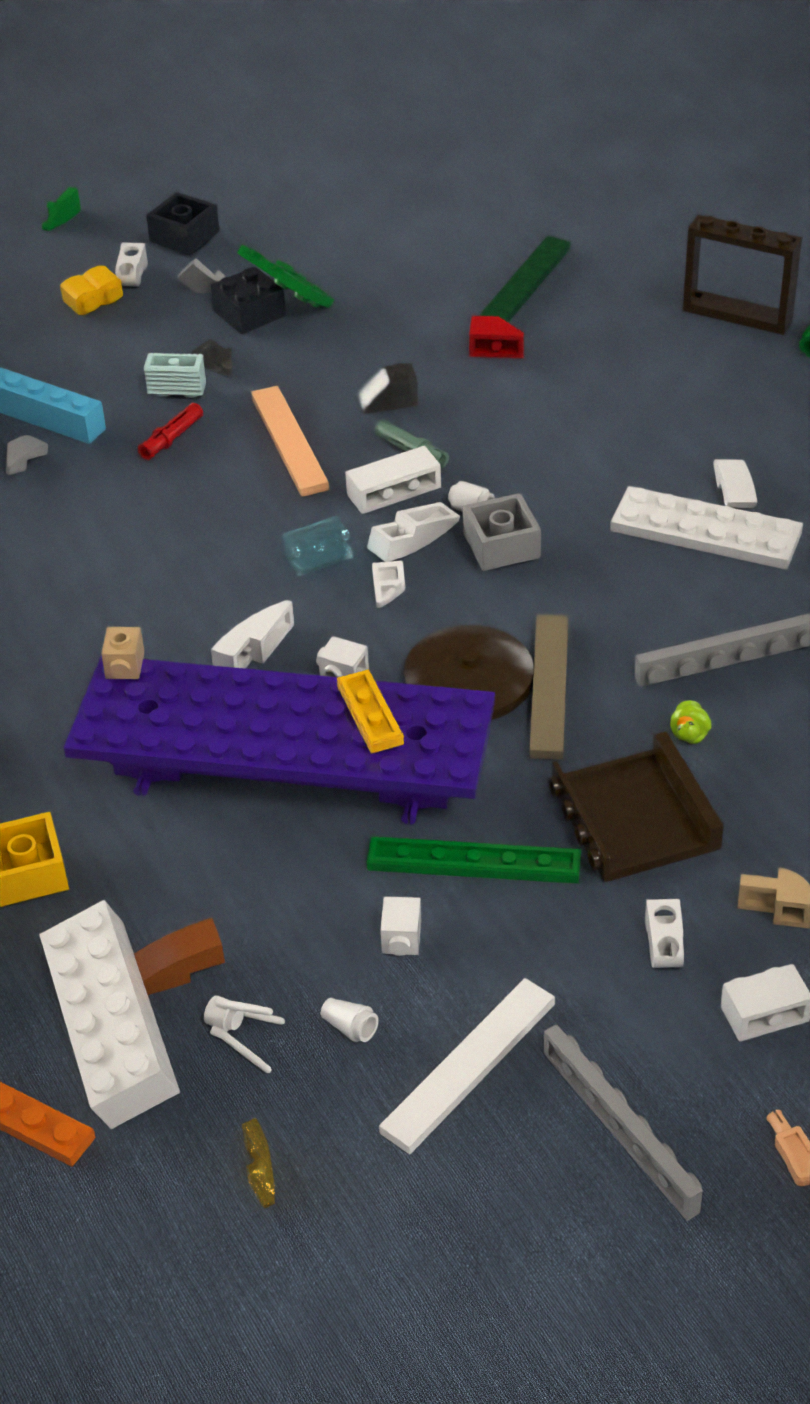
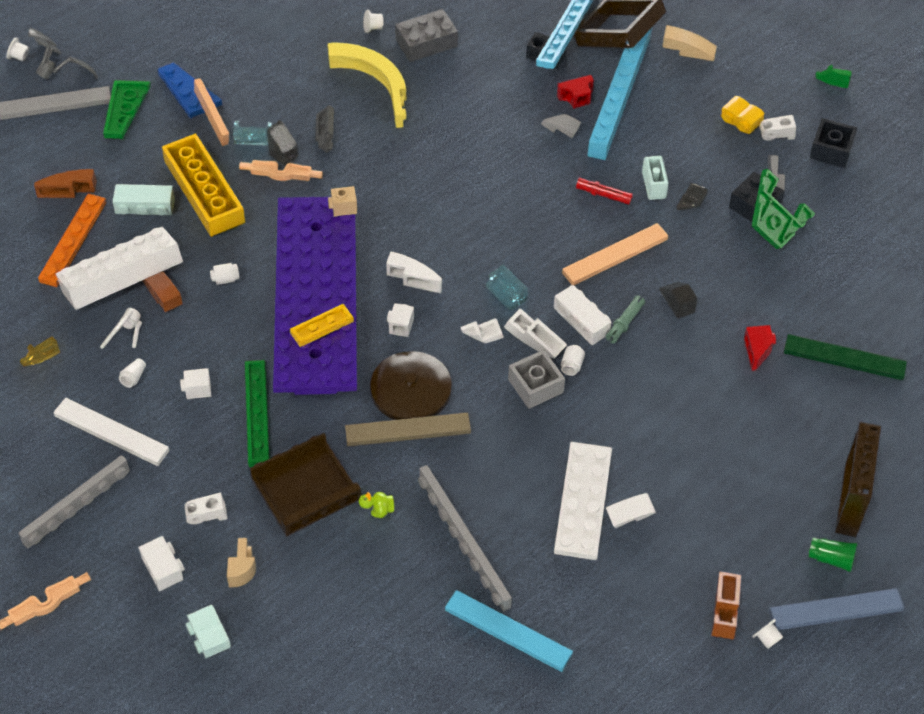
camera: 75 degrees right, 10 degrees up
(169, 869) = (224, 273): none -> white brick

